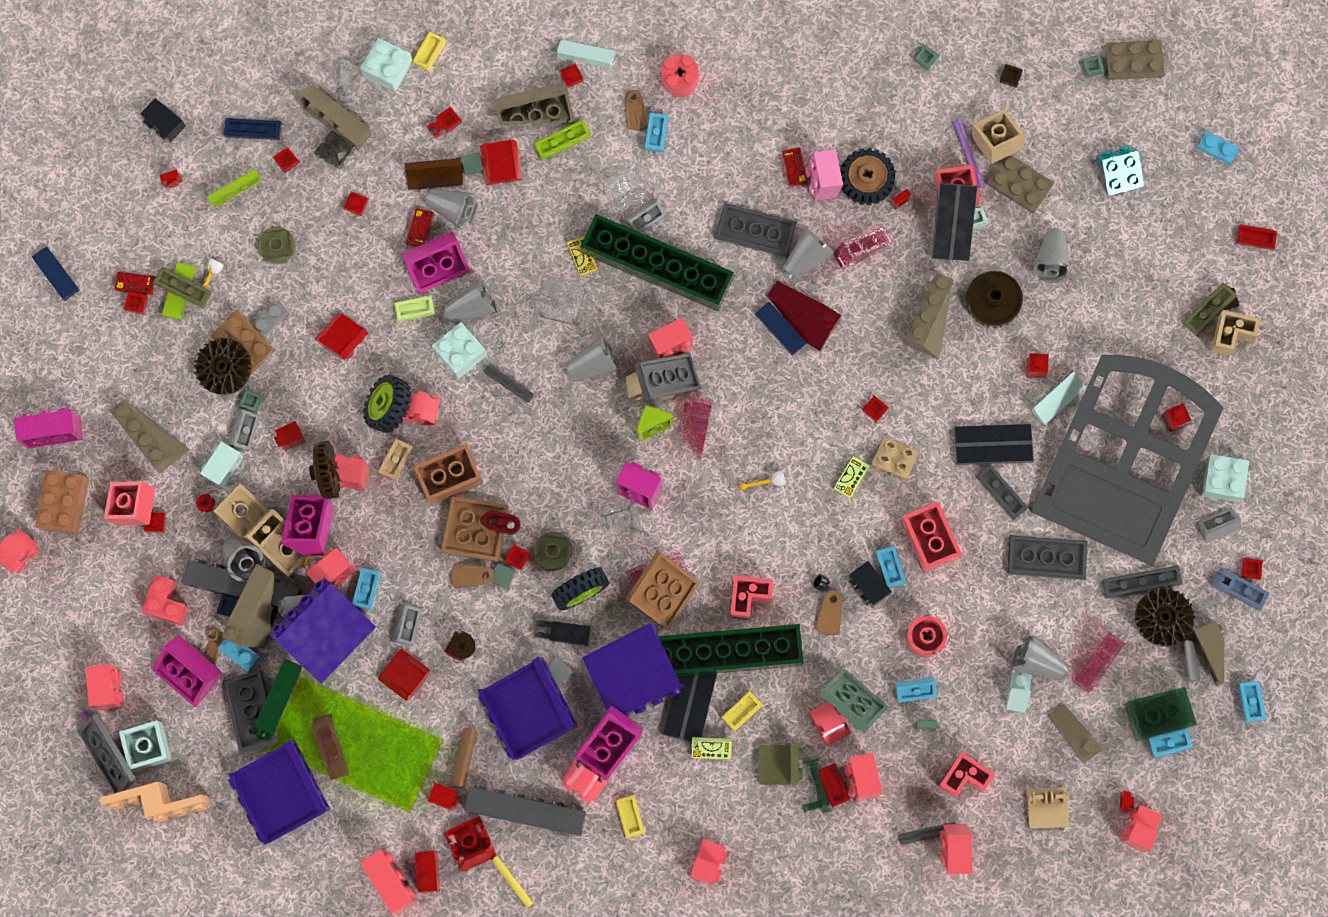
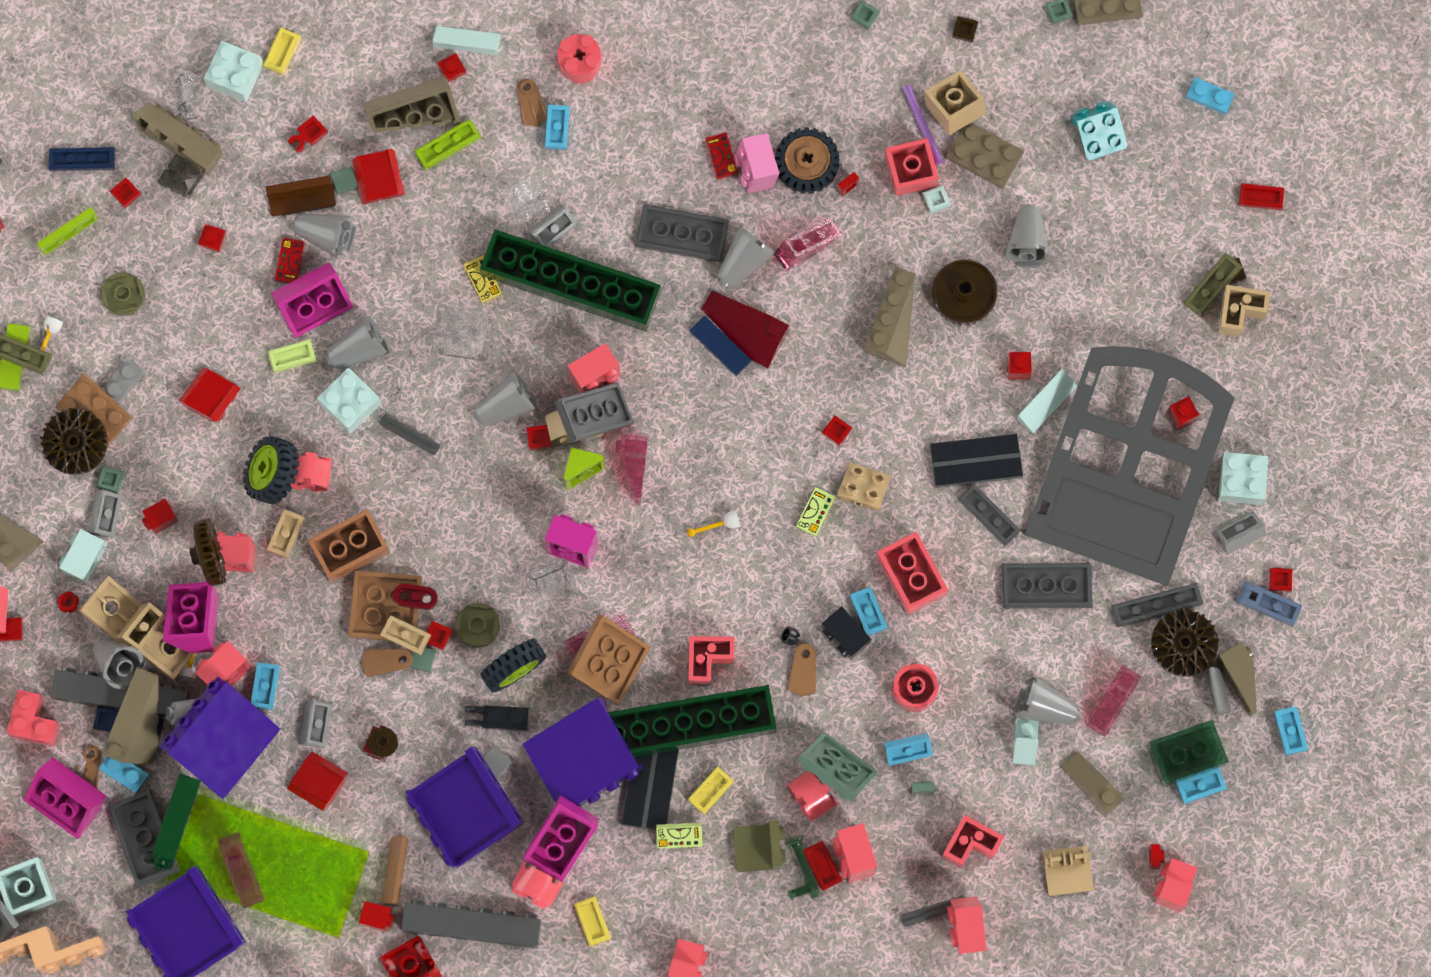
camera: 10 degrees left, 0 degrees up
(489, 555) = (405, 635): none -> tan plate
(618, 394) = (538, 437): none -> red plate
(954, 221) = (911, 206): black tile -> none

